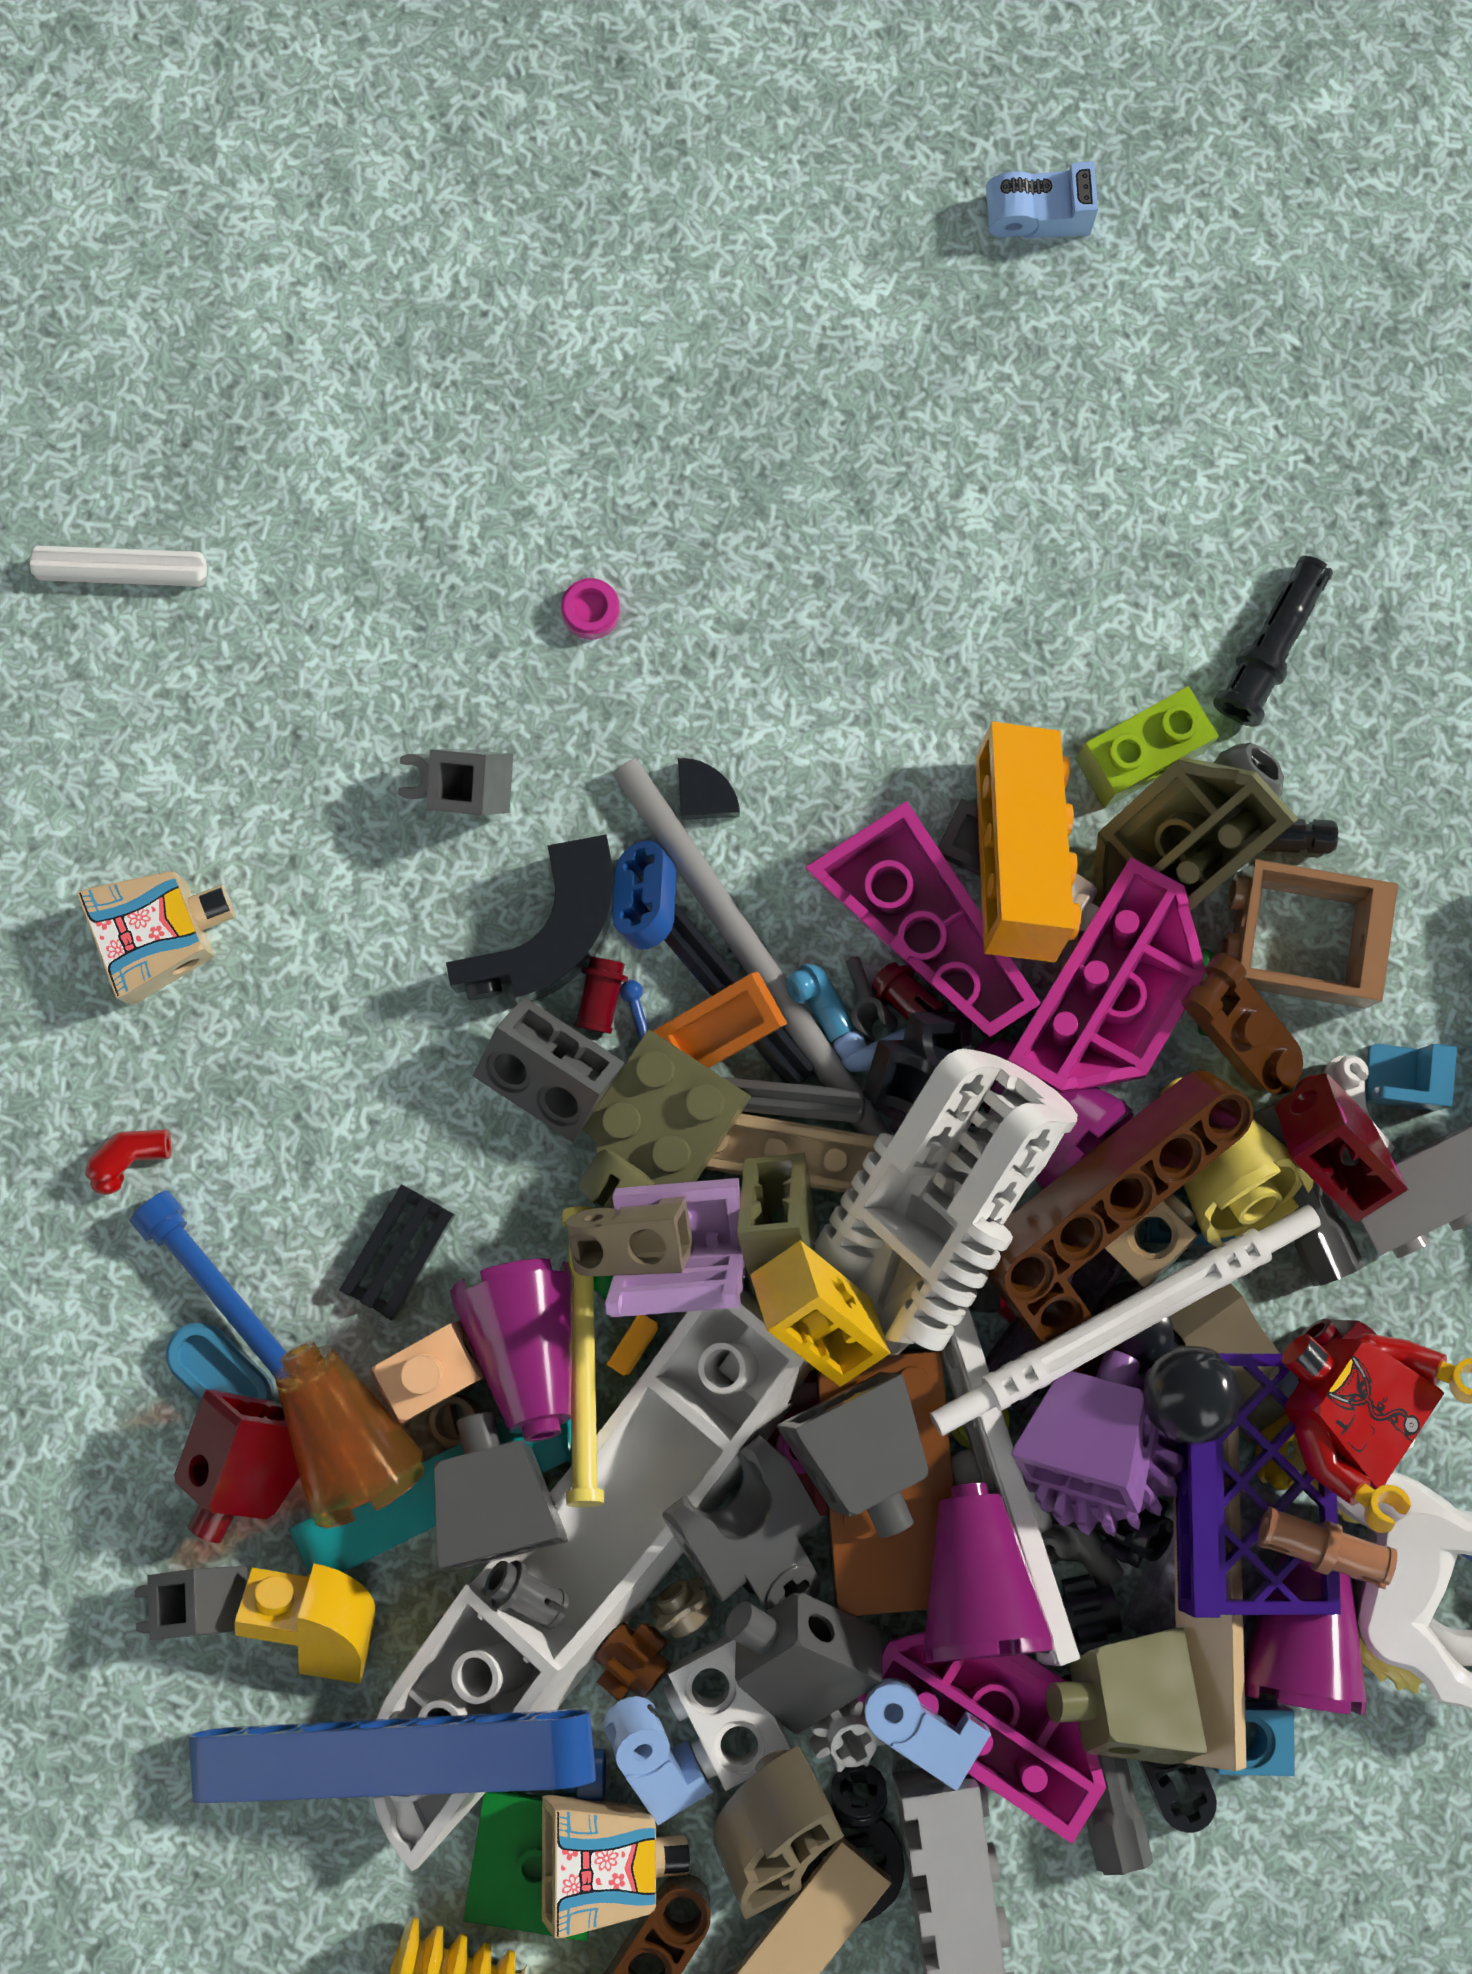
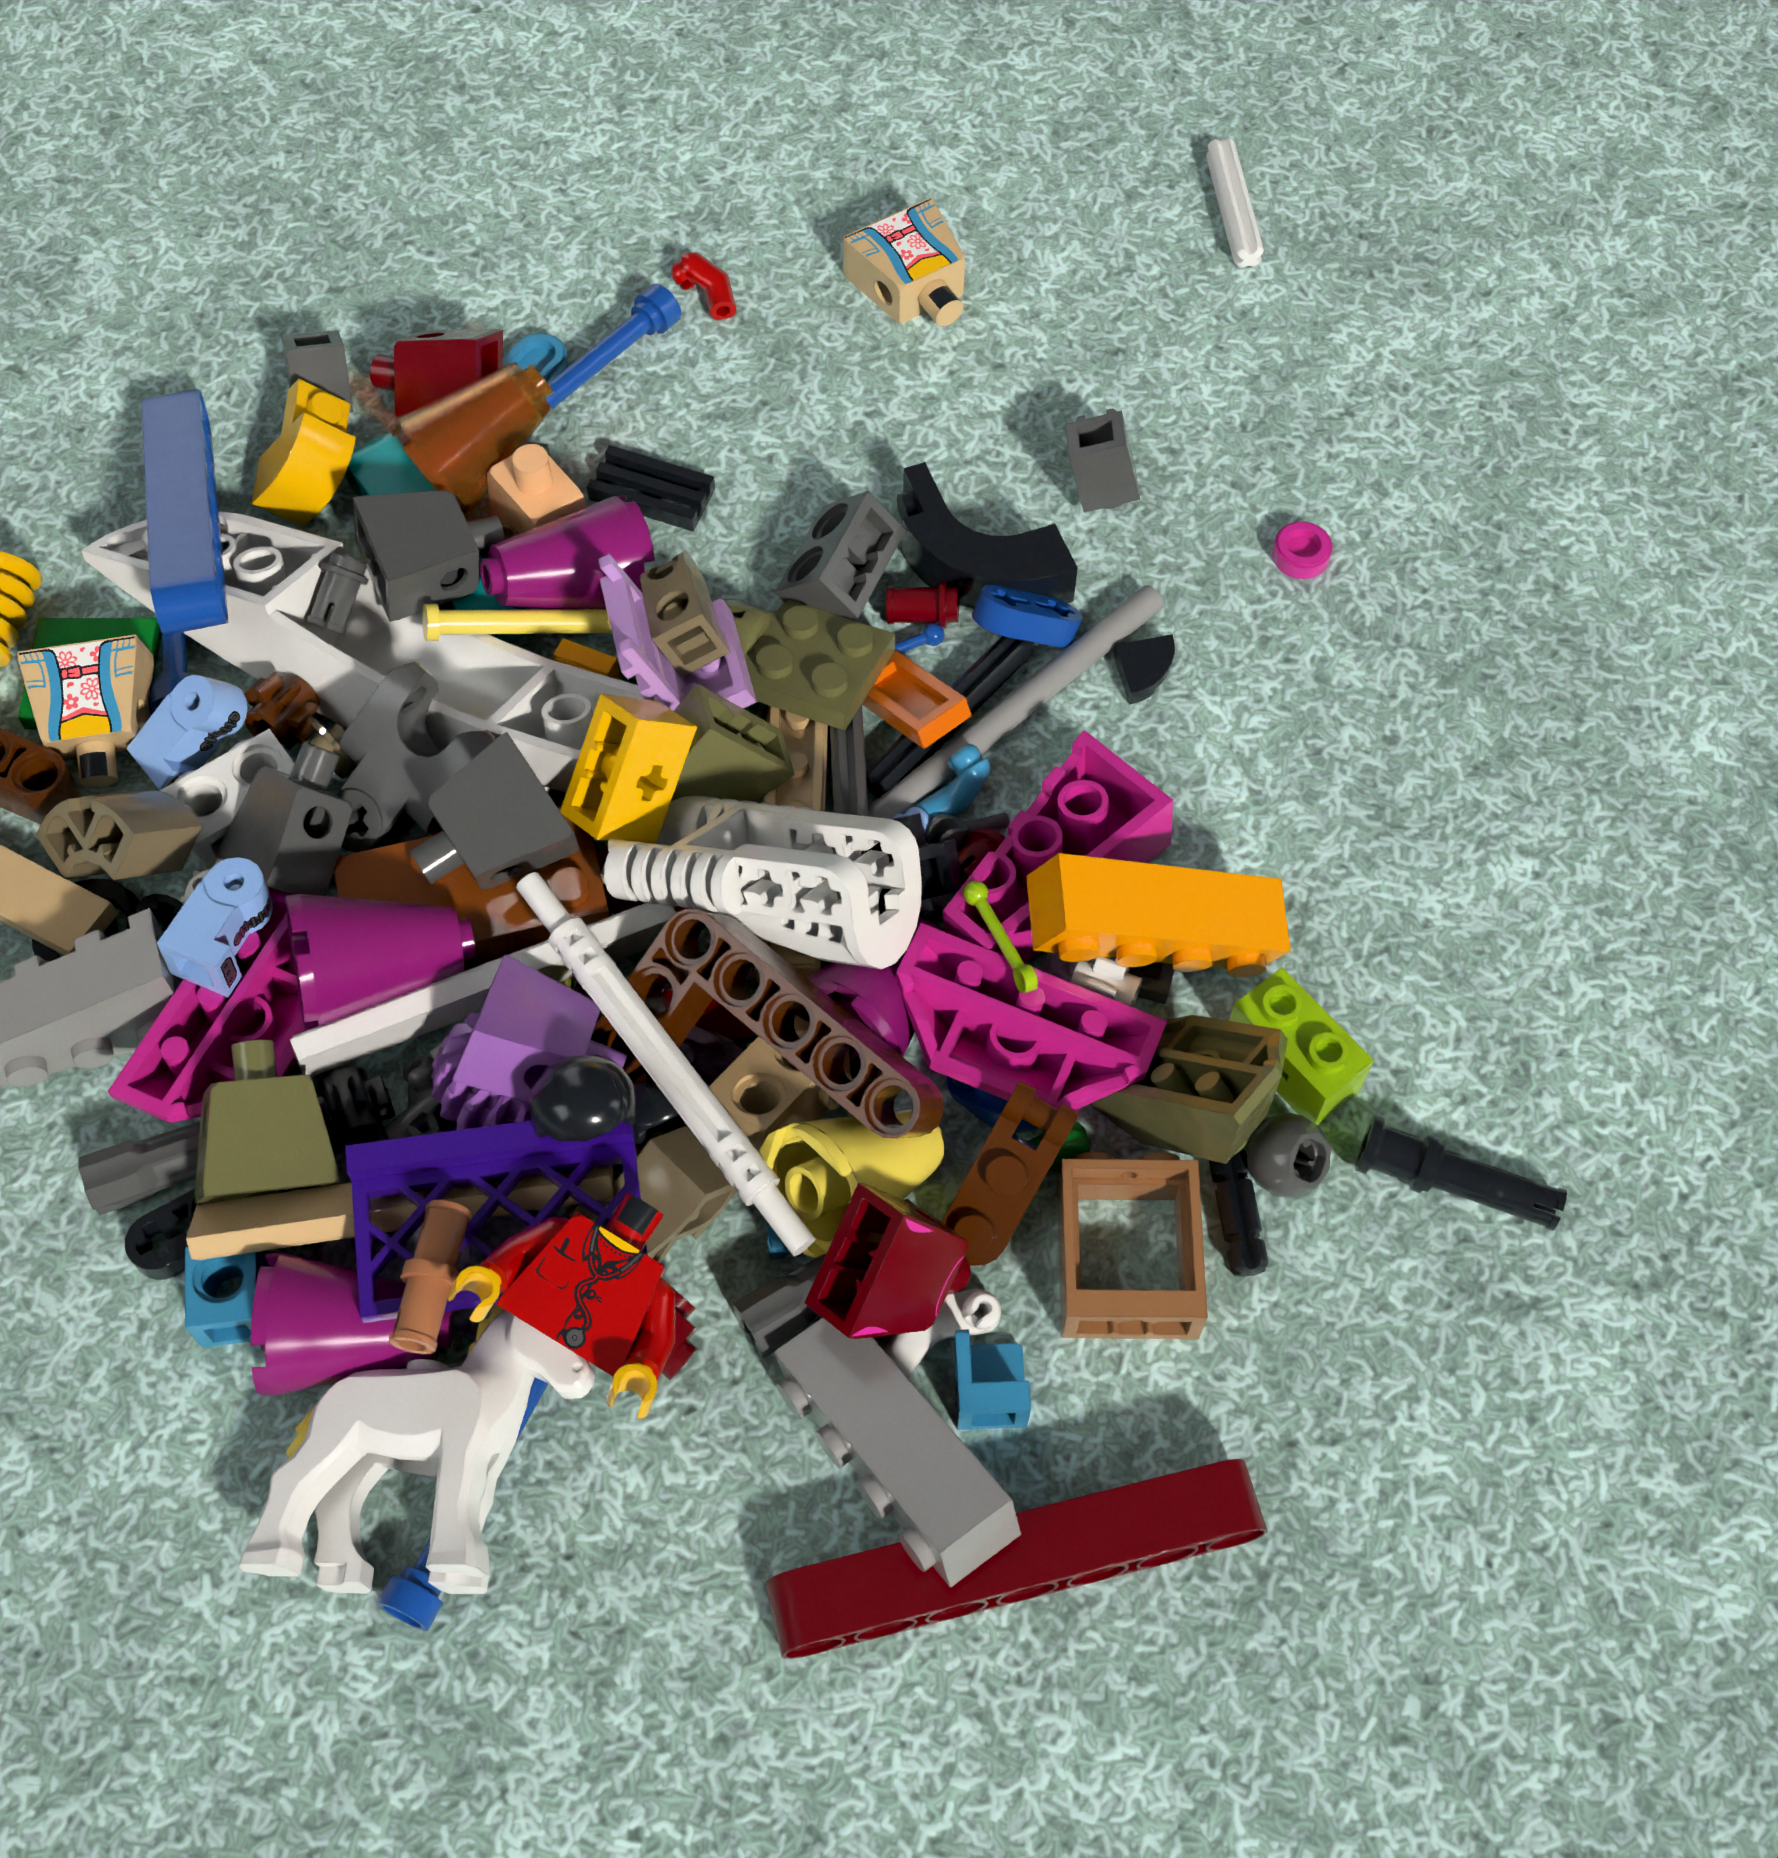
camera: 85 degrees right, 20 degrees down
(986, 1003) = (1025, 978): none -> lime hinge

